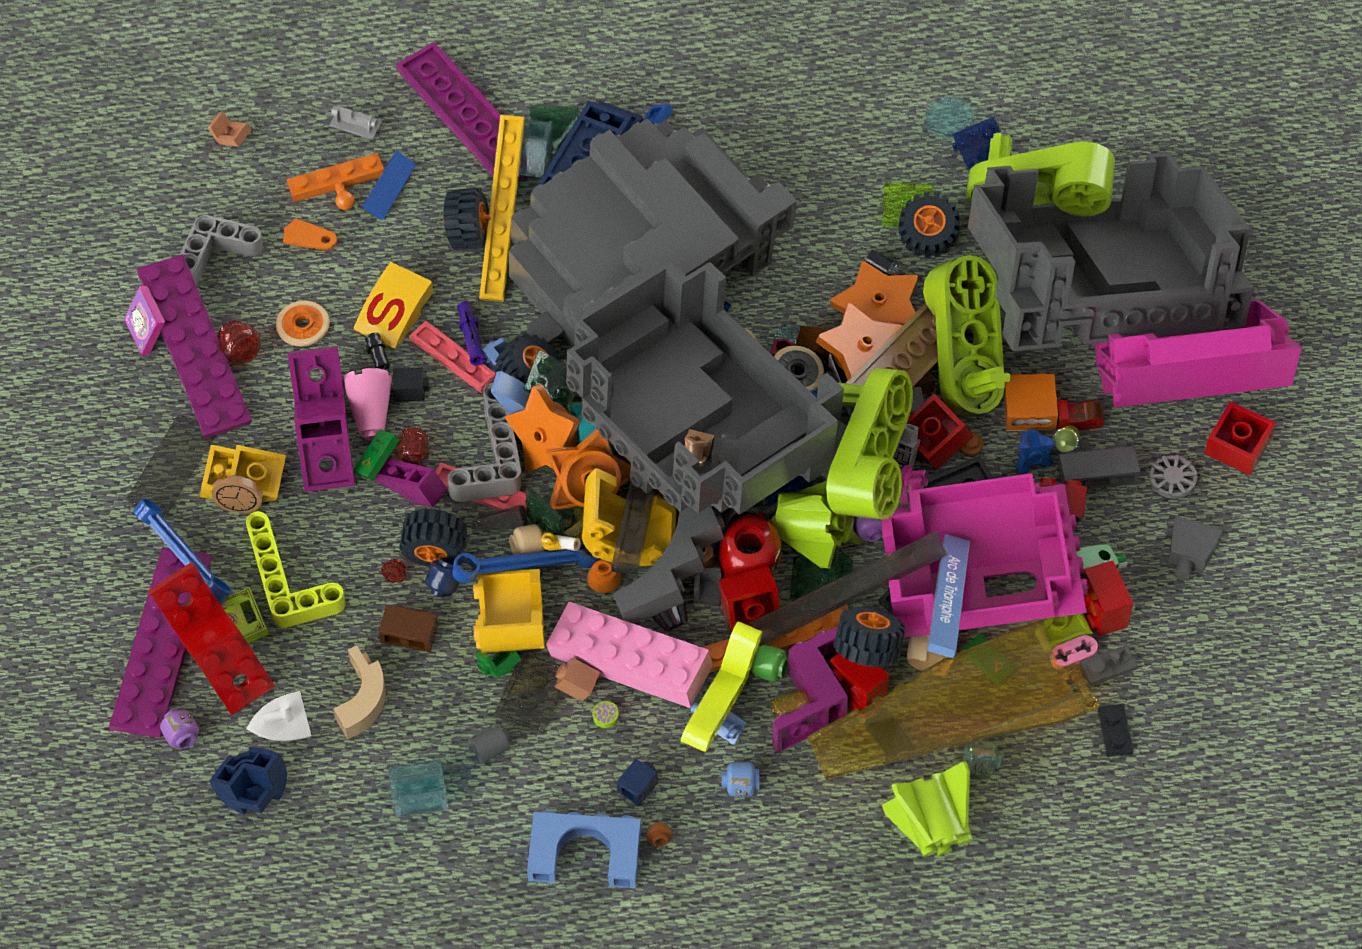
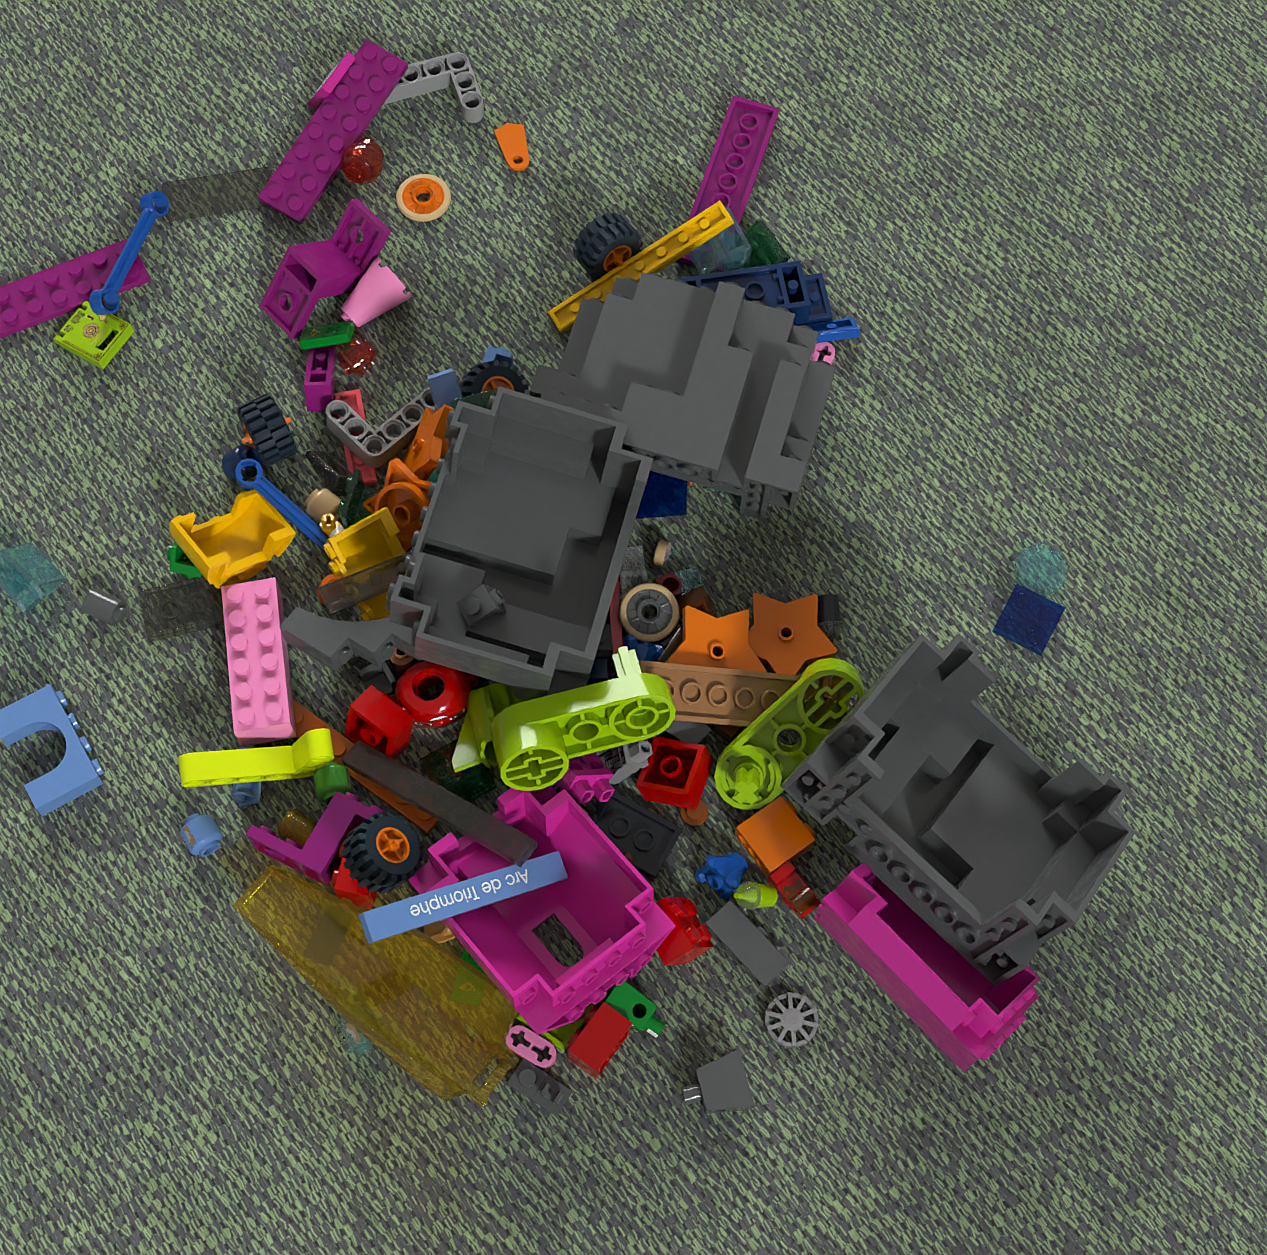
camera: 50 degrees right, 10 degrees up
(211, 638) = (47, 326): red bracket -> none
(228, 132) = (568, 18): nougat bracket -> none
(237, 494) = (210, 256): medium nougat tile -> none
(257, 465) = (239, 248): yellow slope -> none
(276, 580) = (158, 341): neon yellow beam -> none
(281, 719) = (30, 432): white shield -> none
(336, 178) = (585, 128): orange plate -> none
(354, 122) = (653, 104): light grey hinge -> none
(366, 706) = (90, 483): tan arch -> none
(376, 348) = (437, 266): black pin -> none
(389, 185) = (608, 170): blue tile -> none
(394, 304) = (487, 252): yellow slope -> none
(394, 571) = (224, 422): clear red plate -> none
(408, 628) = (175, 470): reddish brown brick -> none
(409, 384) = (417, 314): black brick -> none
(452, 356) = (474, 327): coral tile -> none
(466, 314) = (511, 321): dark purple pin -> none
(576, 679) = (209, 633): nougat brick -> none
(605, 714) = (197, 680): lime tile -> none
(637, 781) = (142, 749): dark blue brick -> none
(659, 834) = (101, 801): dark orange plate -> none
(672, 617) = (327, 675): black piece -> none
(699, 445) = (463, 576): medium nougat piece -> none
(896, 197) = (915, 594): clear neon green plate -> none
(929, 225) = (896, 623): black wheel -> none
(933, 810) = (260, 1025): lime brick -> none
(1070, 175) = (1028, 715): lime beam -> none
(1115, 730) = (472, 1137): black plate -> none
(1240, 438) = (874, 1057): red brick -> none

